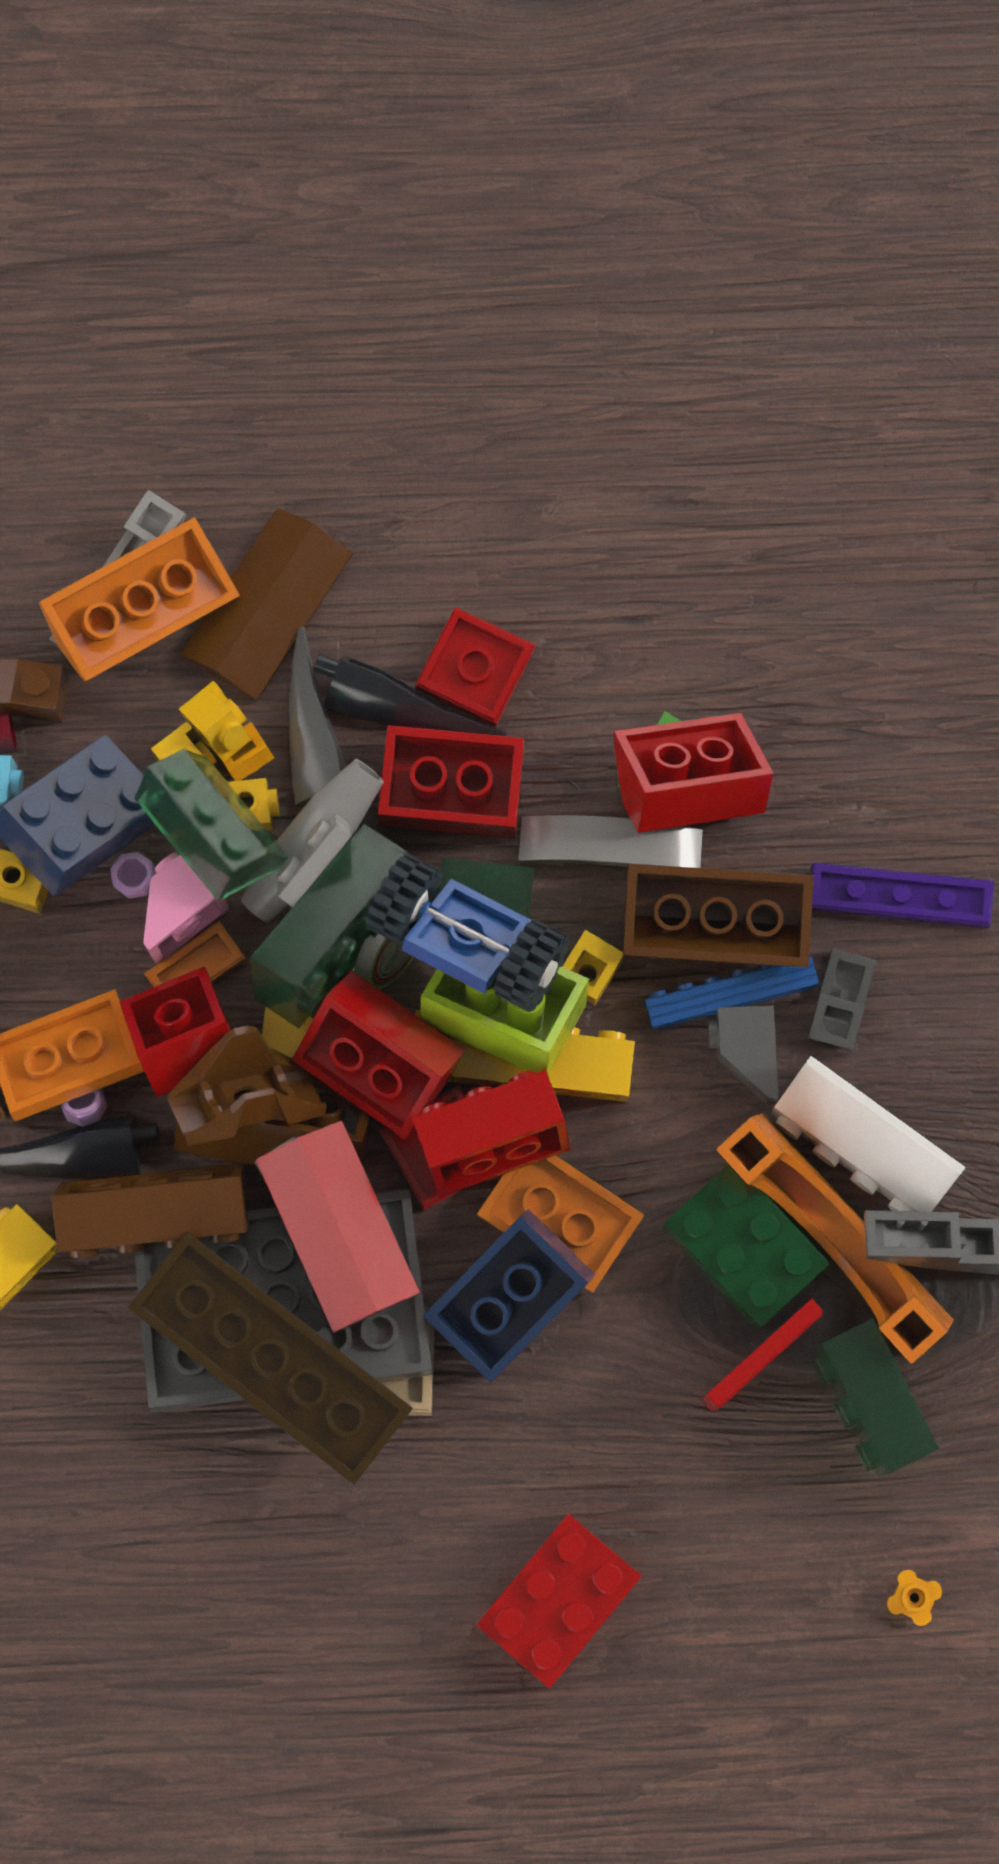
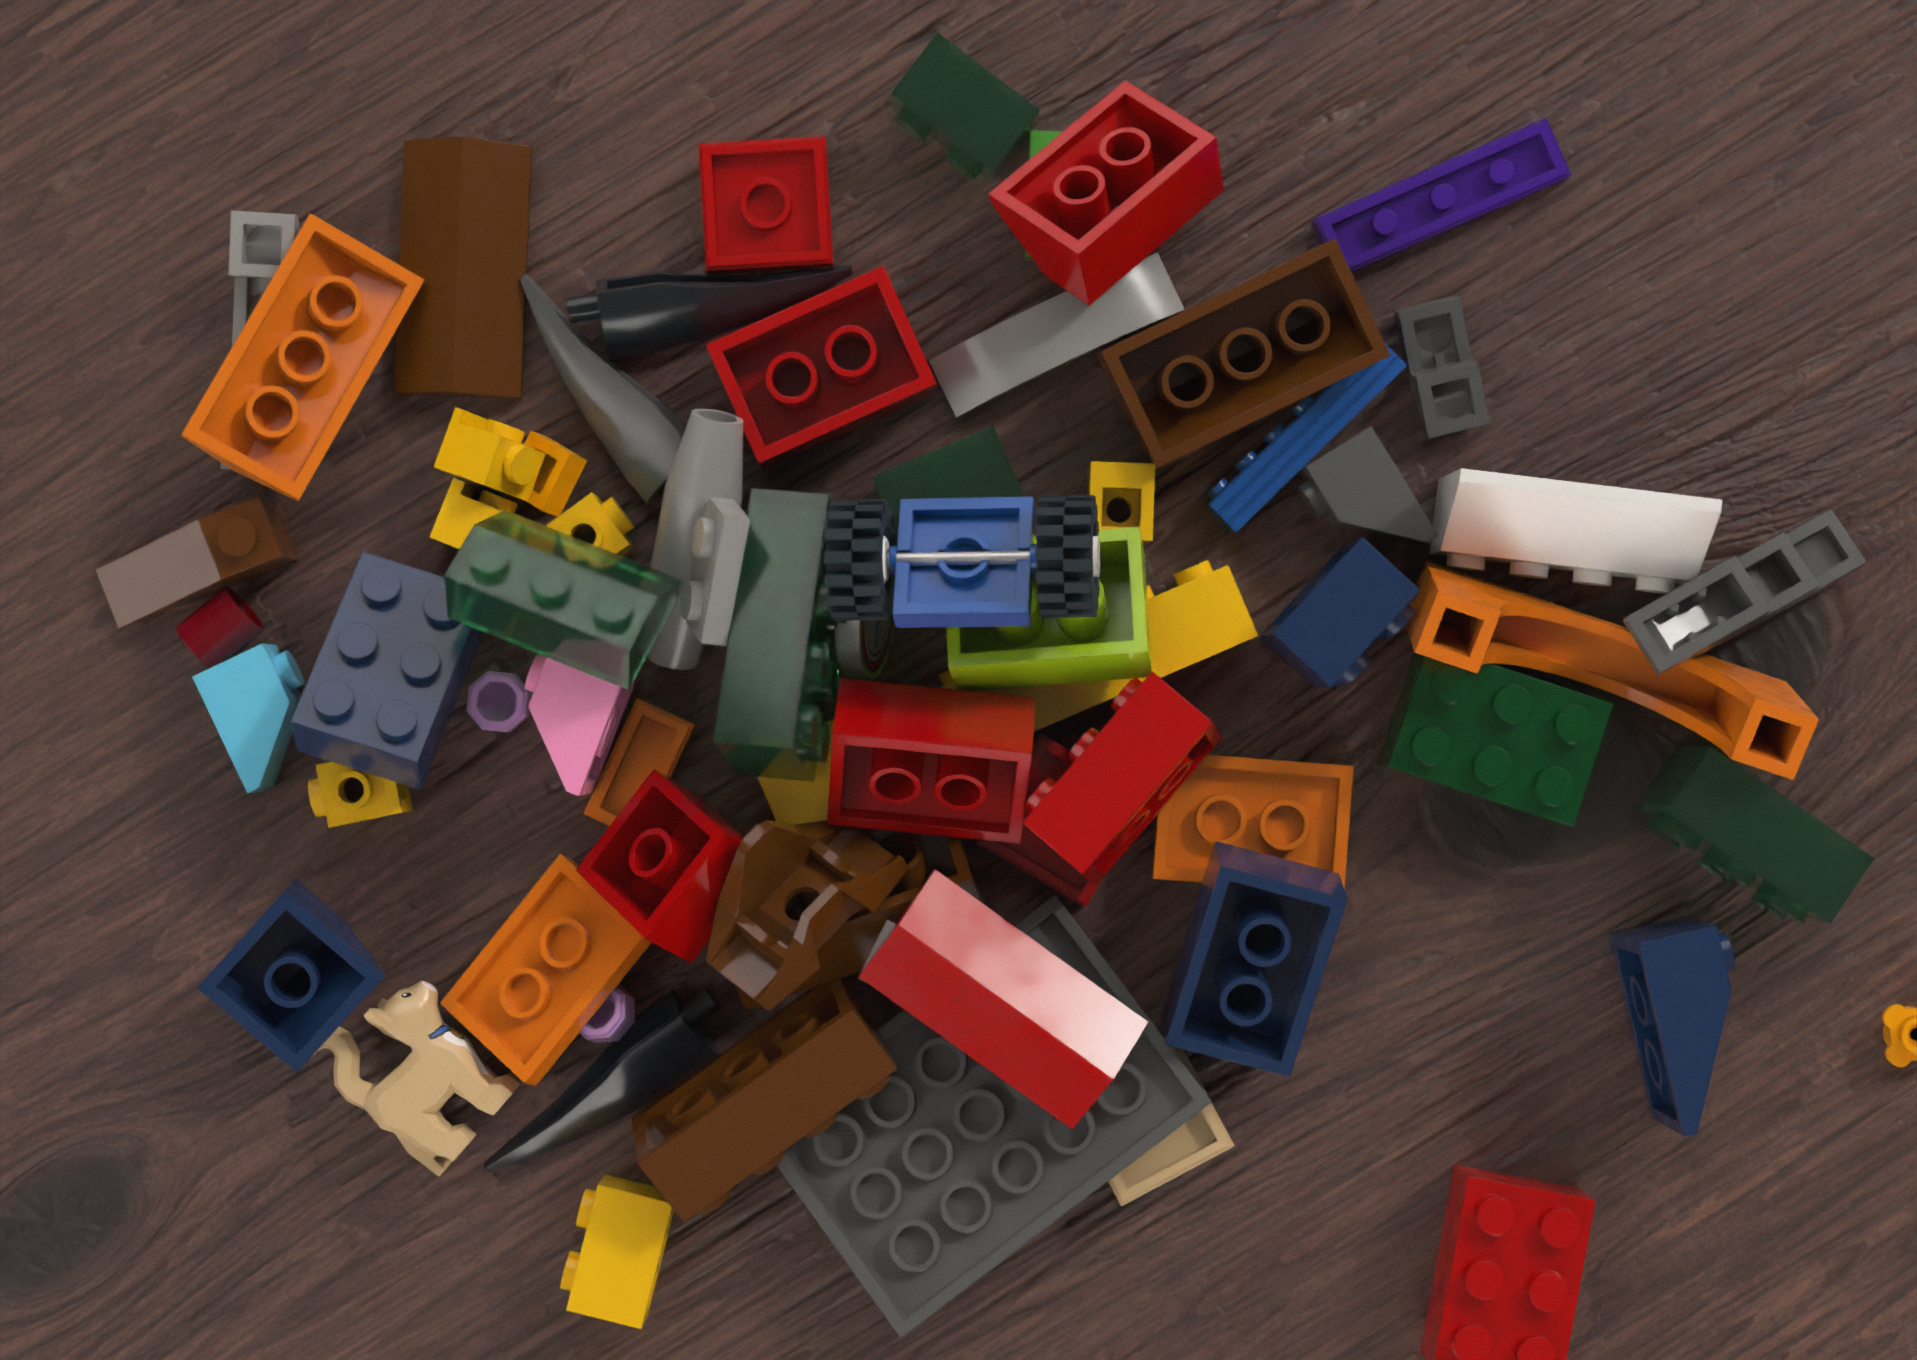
camera: 30 degrees left, 10 degrees up
(270, 1358) = (1014, 1202): dark brown plate -> none
(630, 676) = (963, 110): none -> clear green brick
(687, 1112) = (1341, 614): none -> dark blue brick
(762, 1356) = (1591, 858): red tile -> none
(768, 1471) = (1676, 1010): none -> dark blue slope

